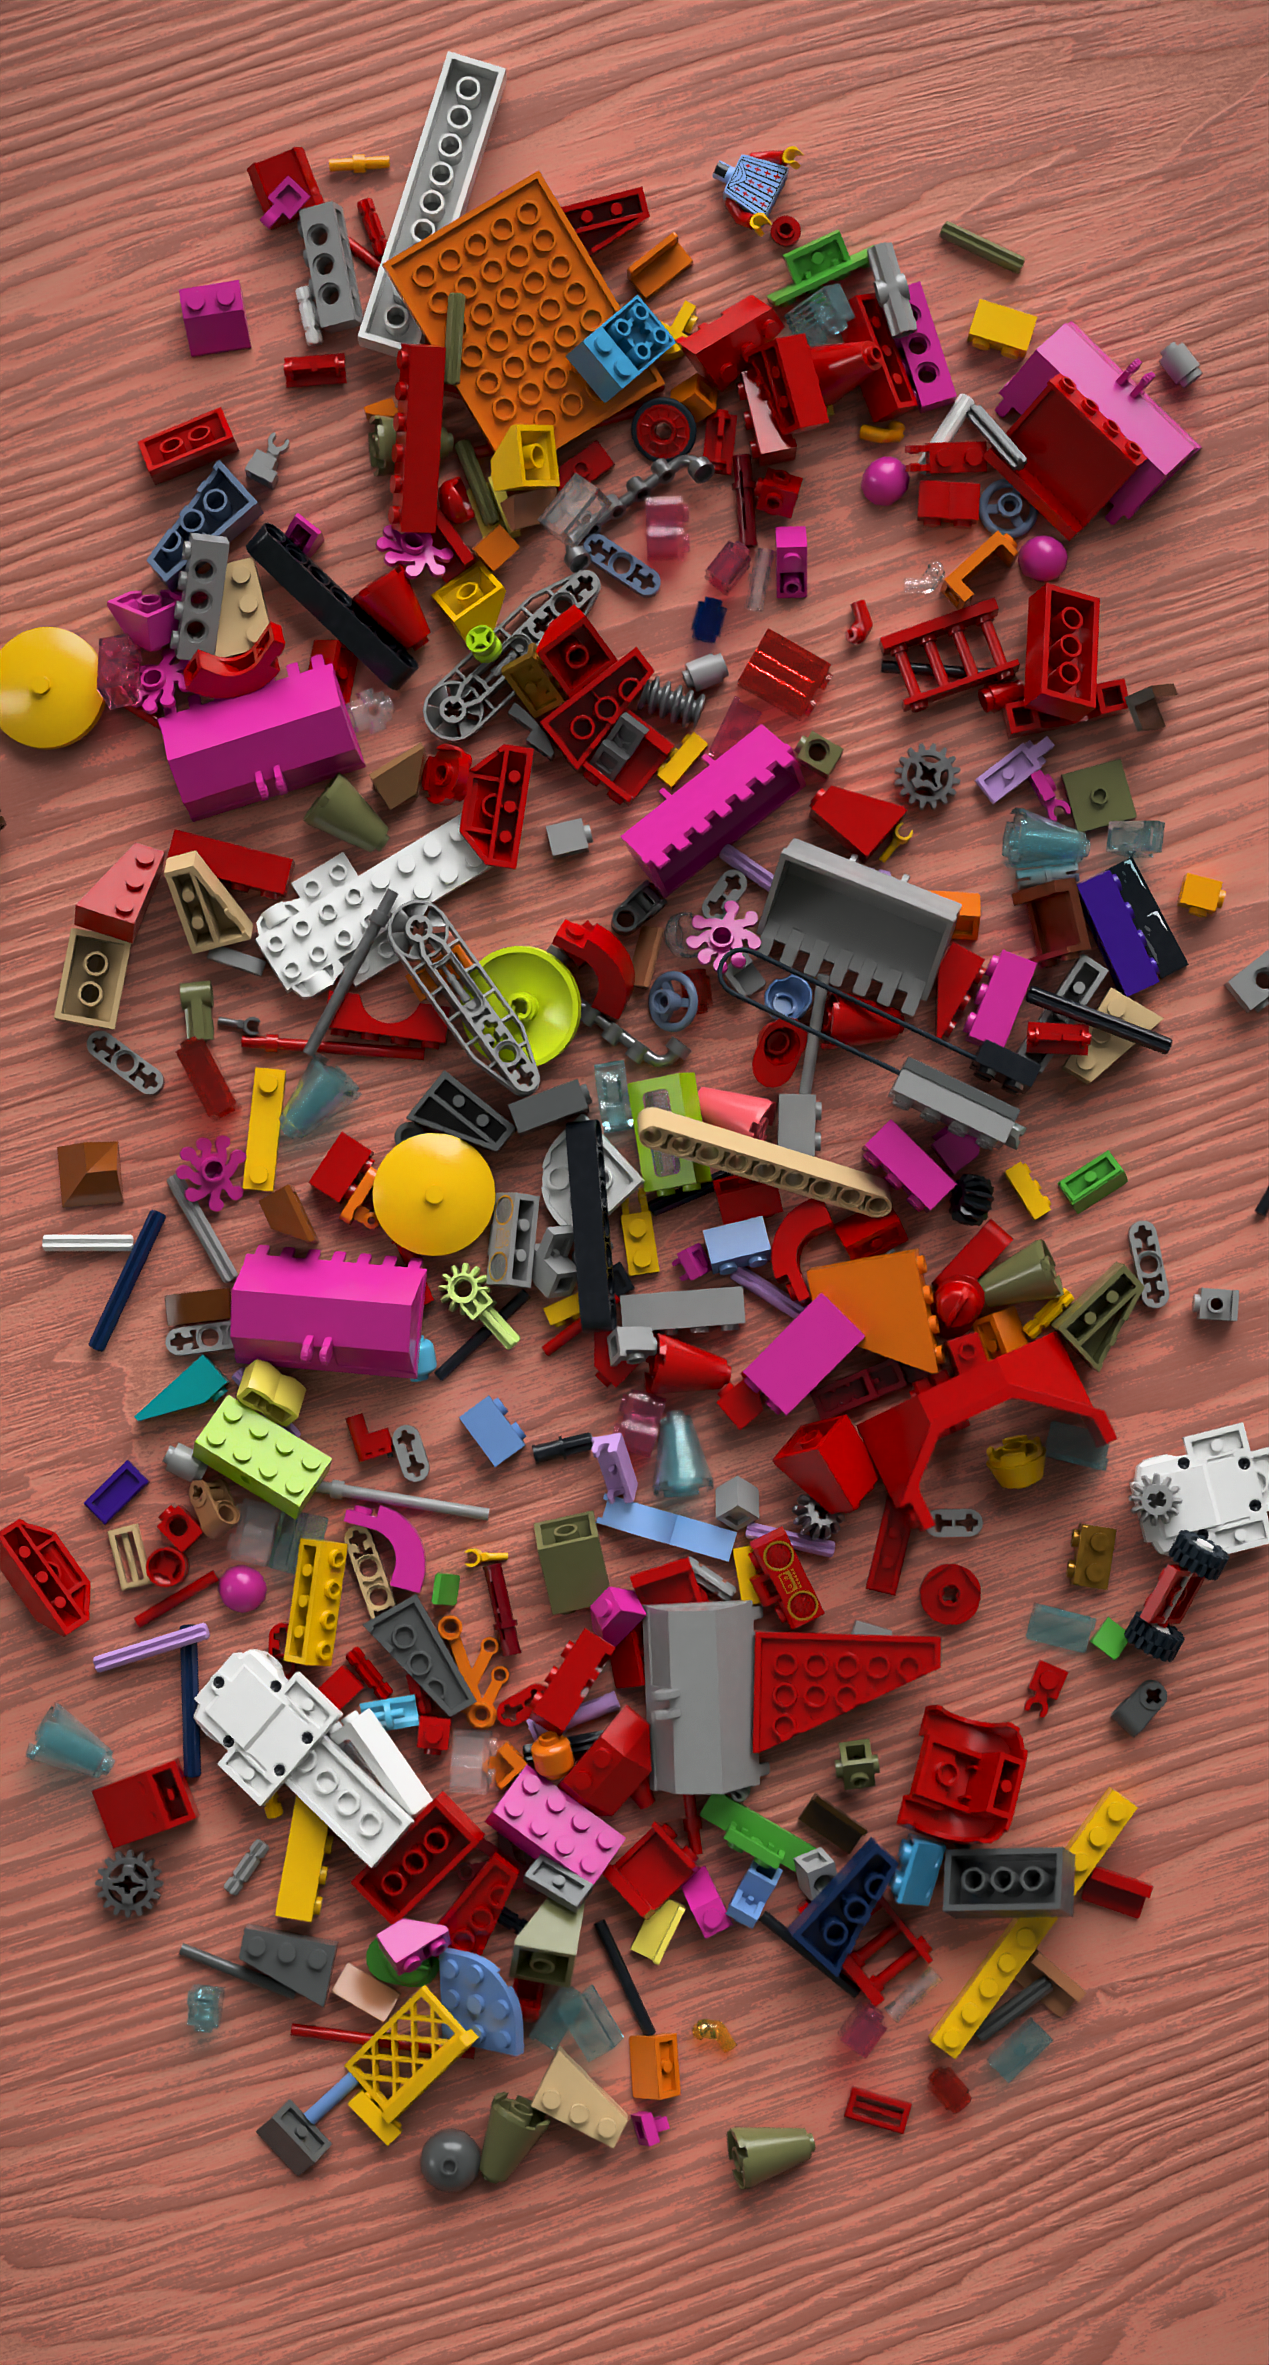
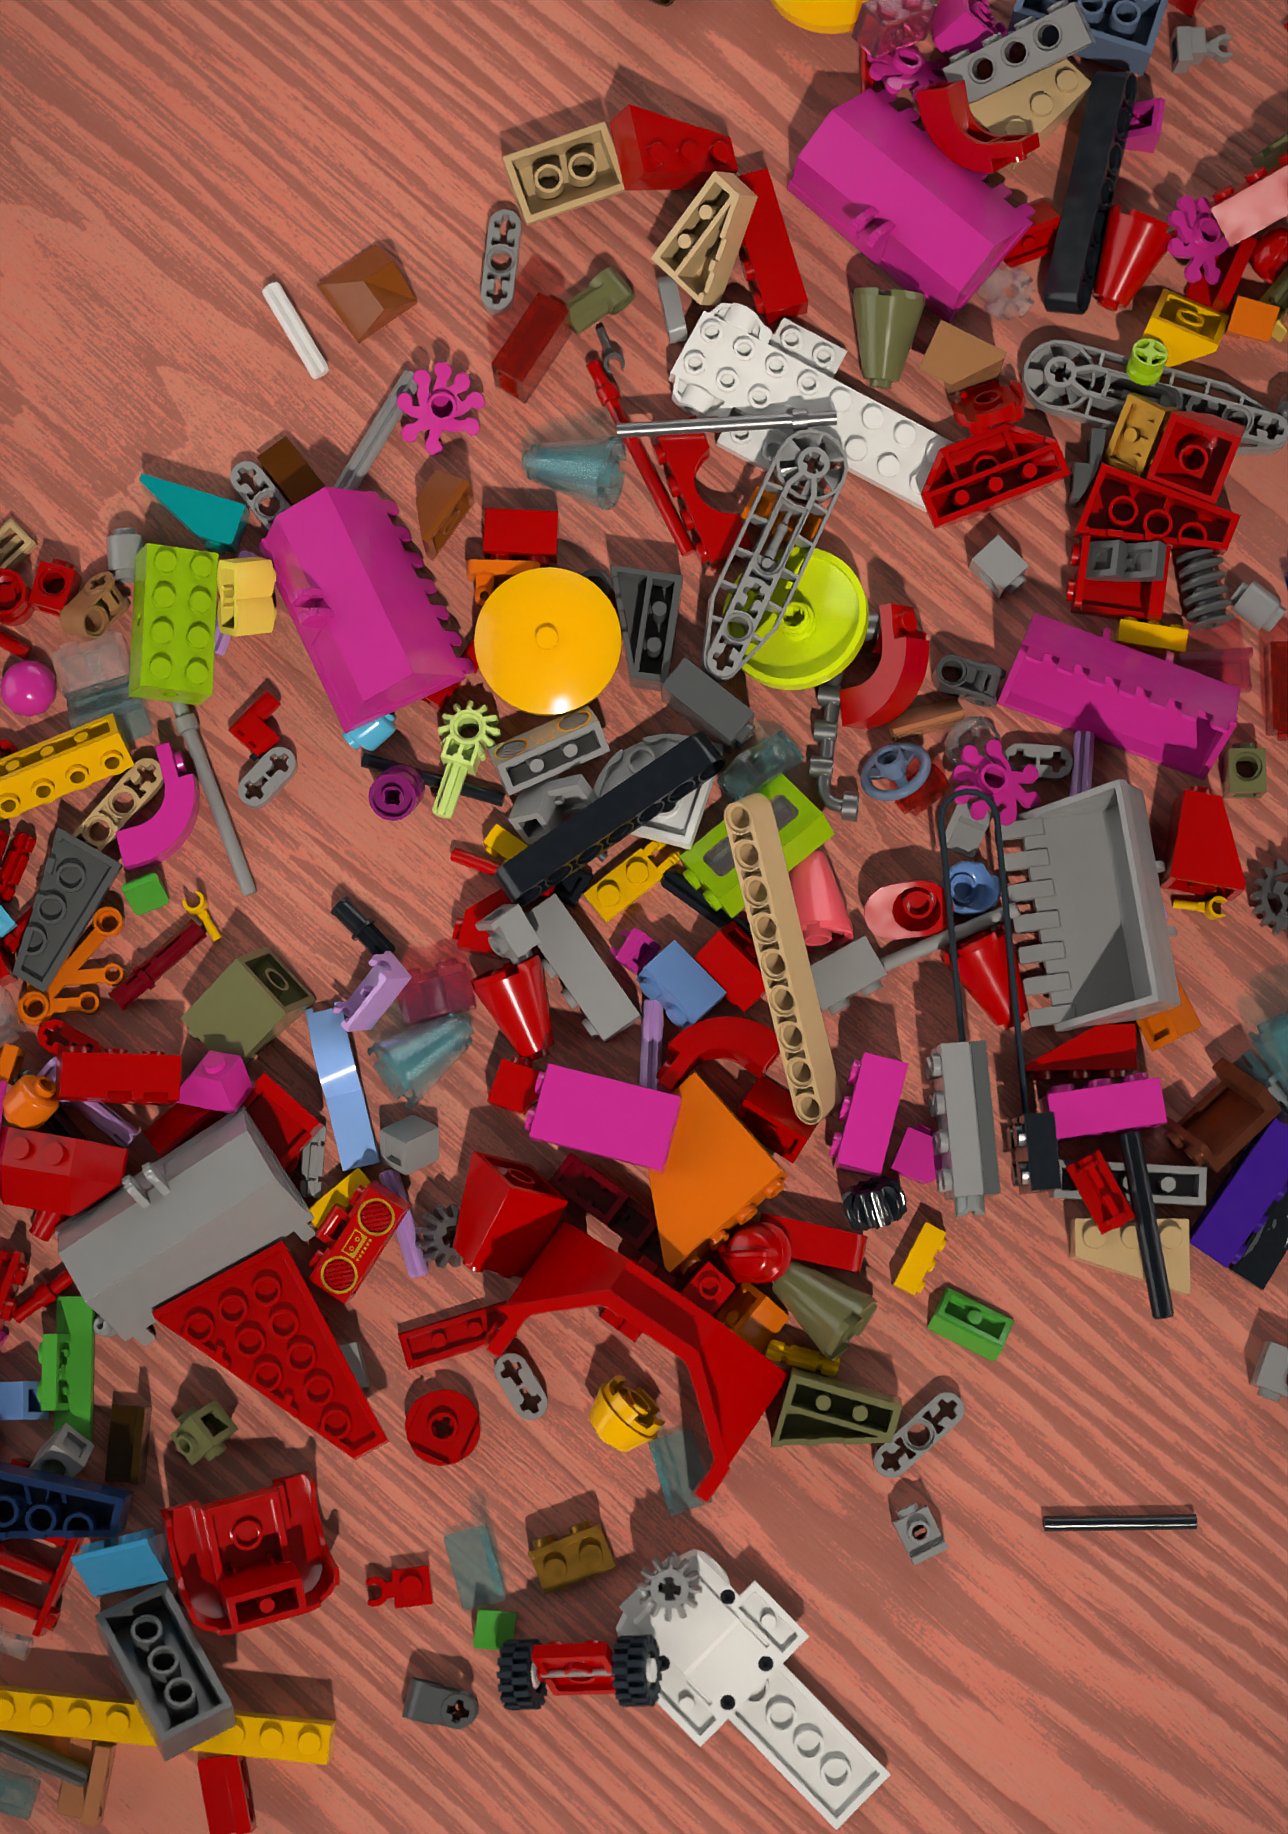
camera: 60 degrees right, 5 degrees down
(116, 1492) = (56, 505): dark purple tile -> none
(127, 1280) = (279, 390): dark blue axle -> none
(264, 1129) = (511, 438): yellow plate -> none
(479, 1366) = (396, 792): none -> magenta wheel
(493, 1430) = (339, 846): medium blue brick -> none

